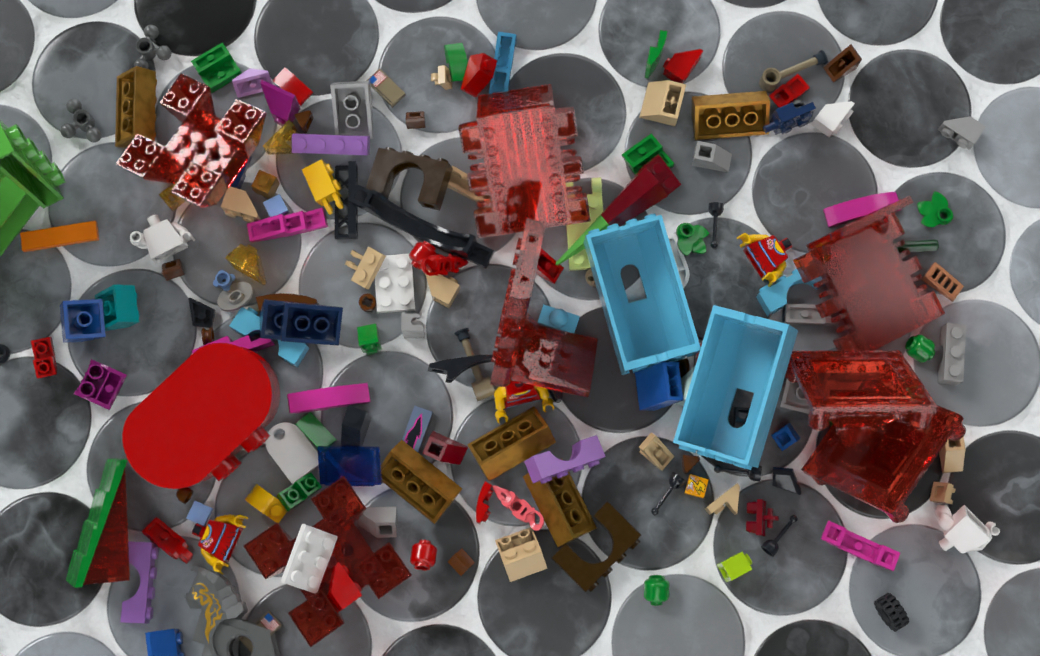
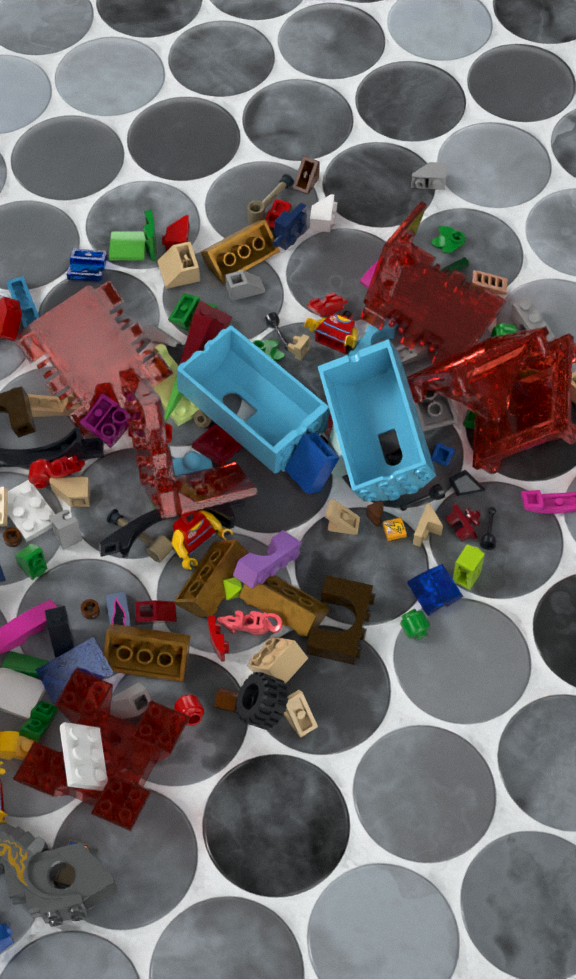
camera: 30 degrees left, 20 degrees down
(342, 588) = (130, 765): red slope -> none
(391, 406) = (90, 615): none -> reddish brown bush
(483, 589) = (262, 700): none -> black tyre
(501, 238) = (106, 420): none -> magenta slope
(510, 614) = (299, 714): none -> tan slope
(519, 465) = (232, 588): none -> lime slope
(582, 50) = (87, 265): none -> clear blue slope
(588, 313) = (217, 445): none -> dark red tile
(604, 169) = (156, 334): none -> light grey slope
(630, 50) = (127, 246): none -> bright green slope
(675, 482) = (374, 533): black hinge -> none
(694, 565) = (434, 589): none -> clear blue slope
(723, 254) = (301, 348): none -> tan tile
(774, 221) = (327, 305): none -> red piece

